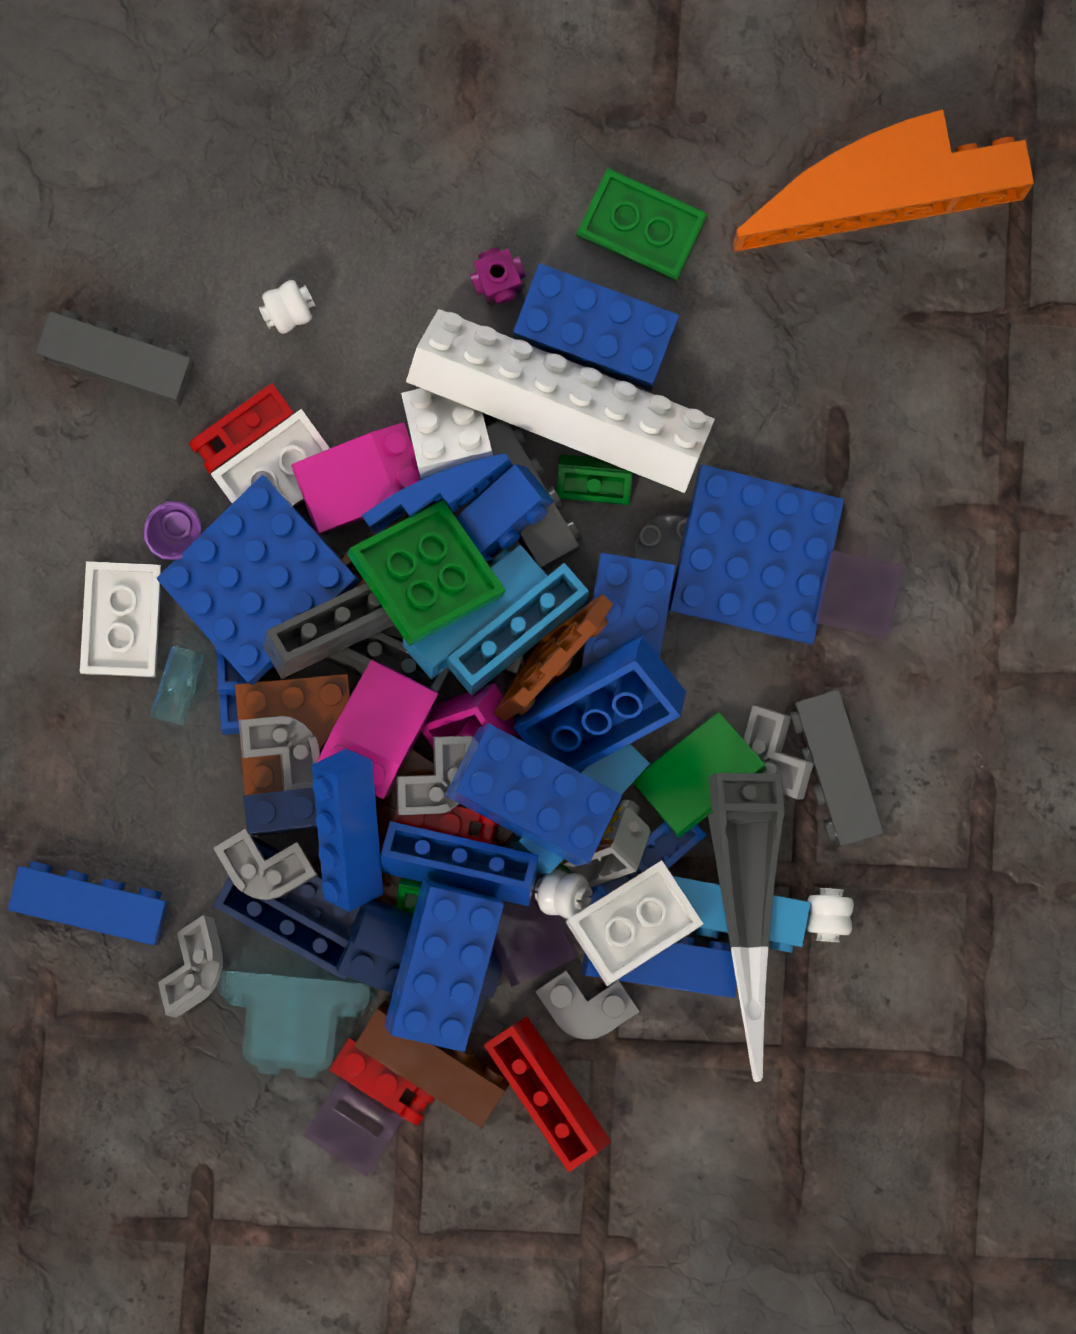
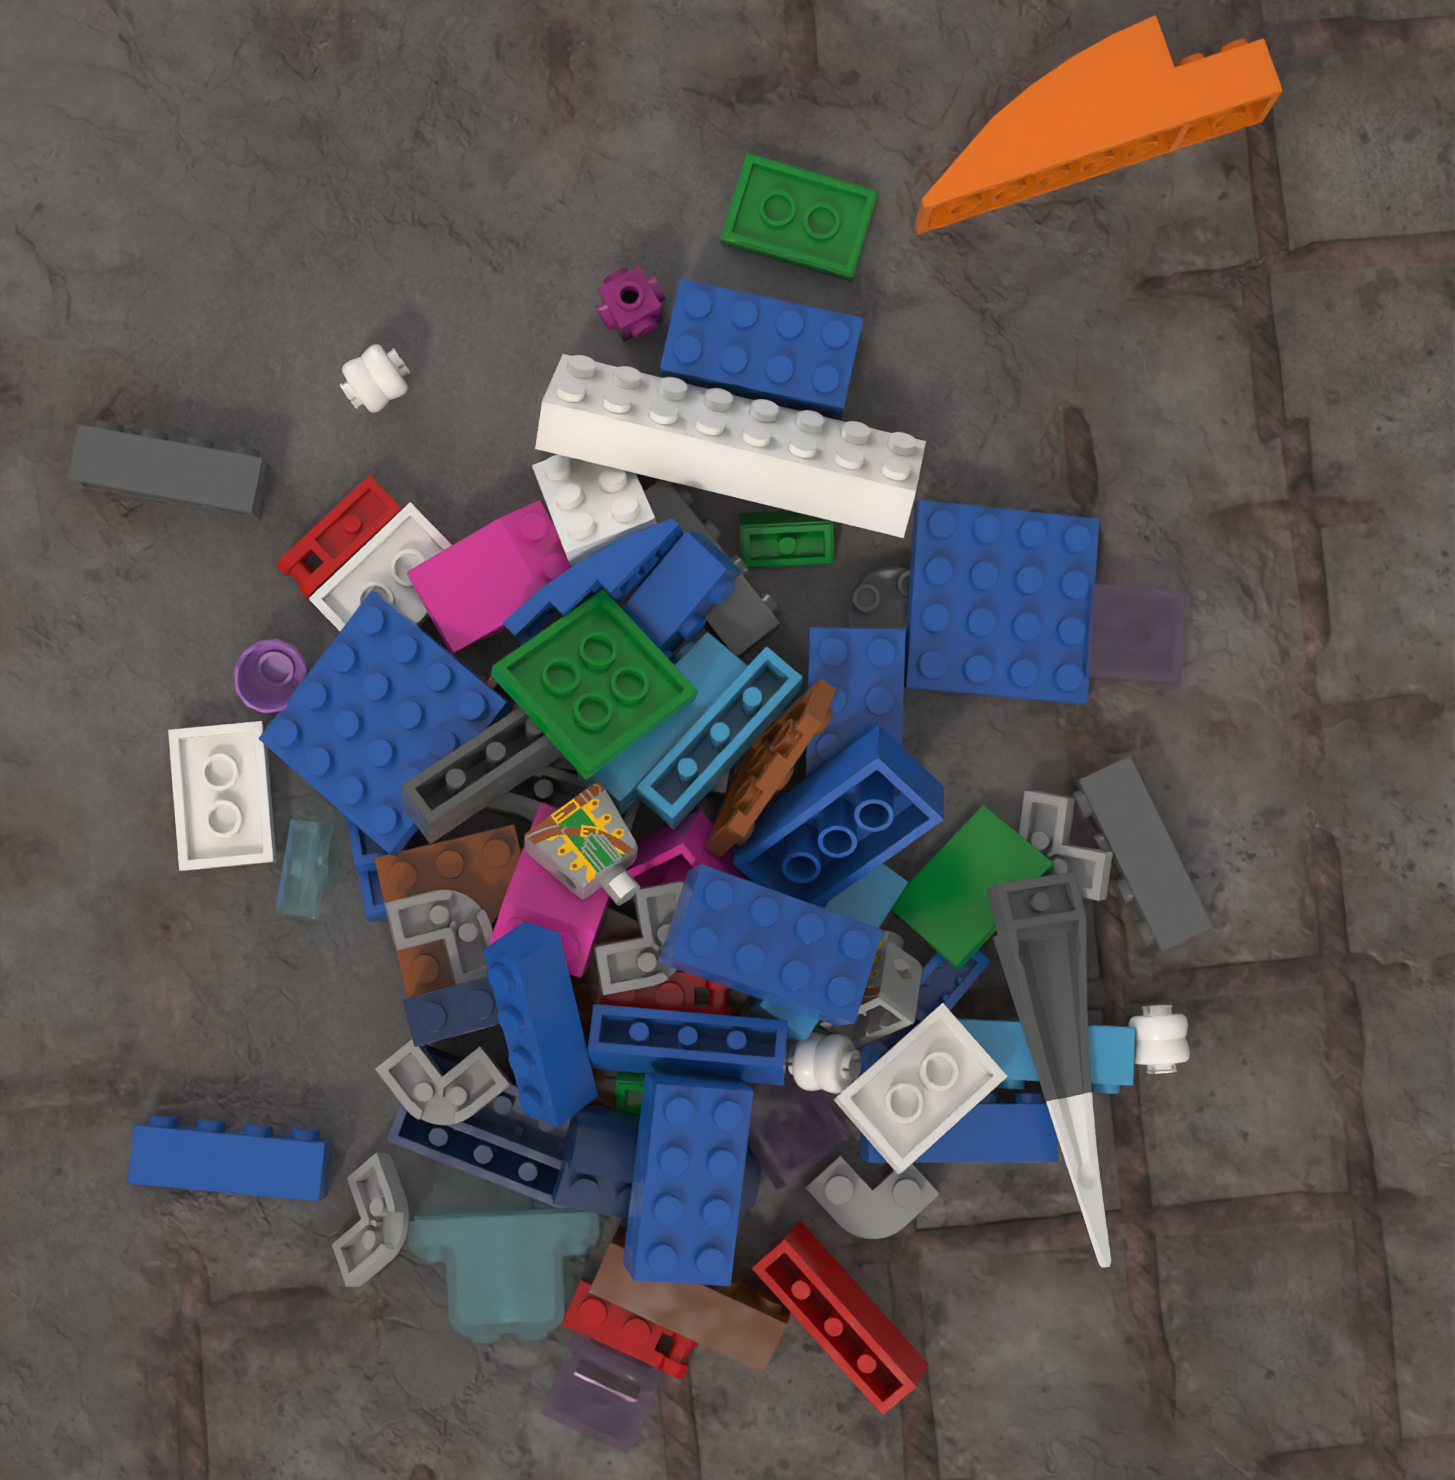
camera: 10 degrees left, 0 degrees up
(402, 698) = (587, 846): none -> torso

